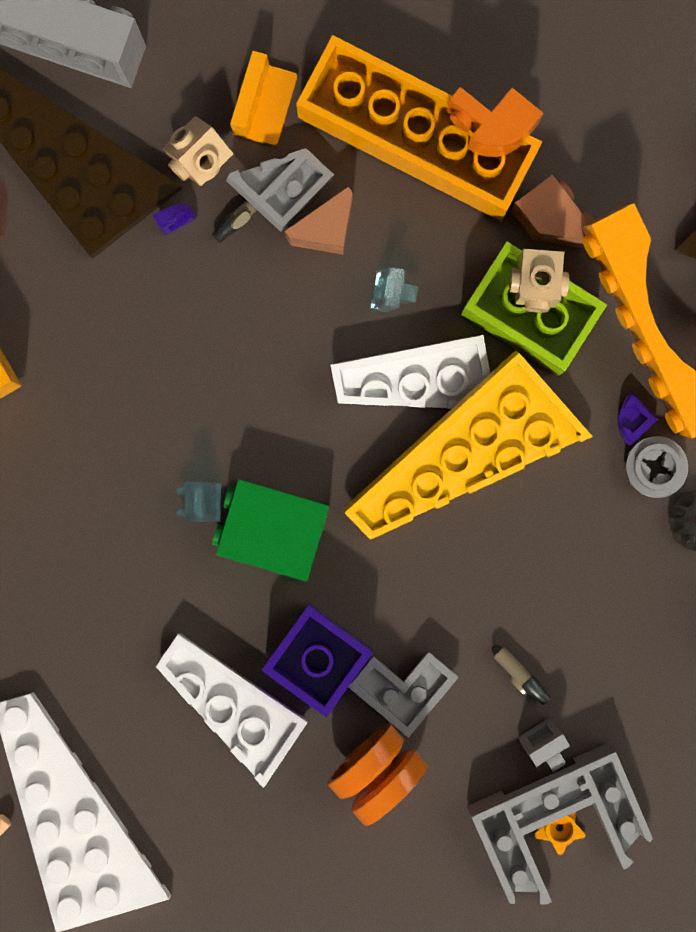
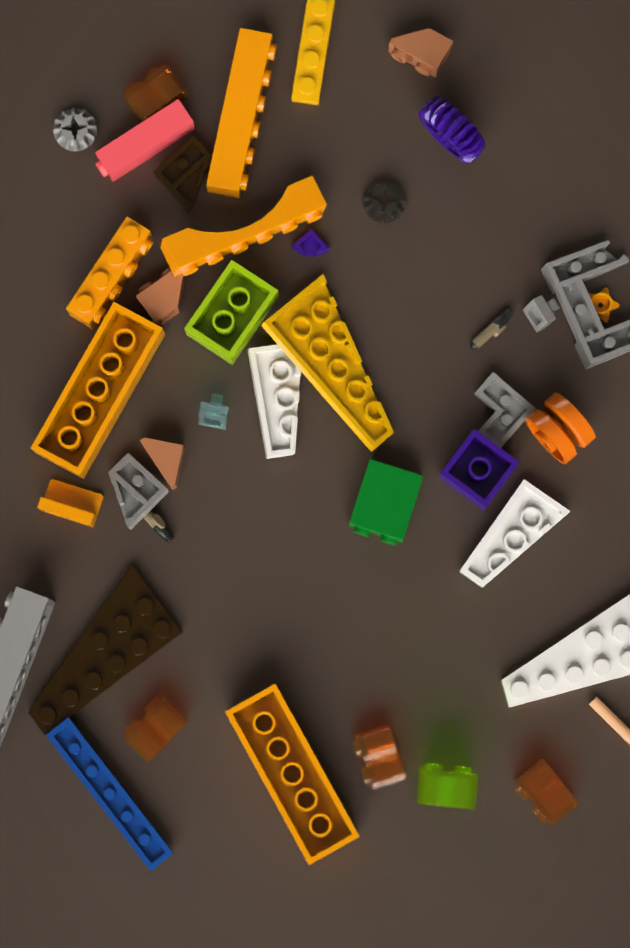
camera: 85 degrees left, 5 degrees down
(174, 217) = (155, 569): dark purple tile -> none
(196, 152) = (108, 550): tan brick -> none
(201, 502) = (364, 552): clear light blue tile -> none
(495, 131) = (107, 330): orange brick -> none
(542, 266) = (206, 300): tan brick -> none
(592, 143) = (110, 273): none -> light orange brick
(673, 460) = (341, 218): light grey gear -> none

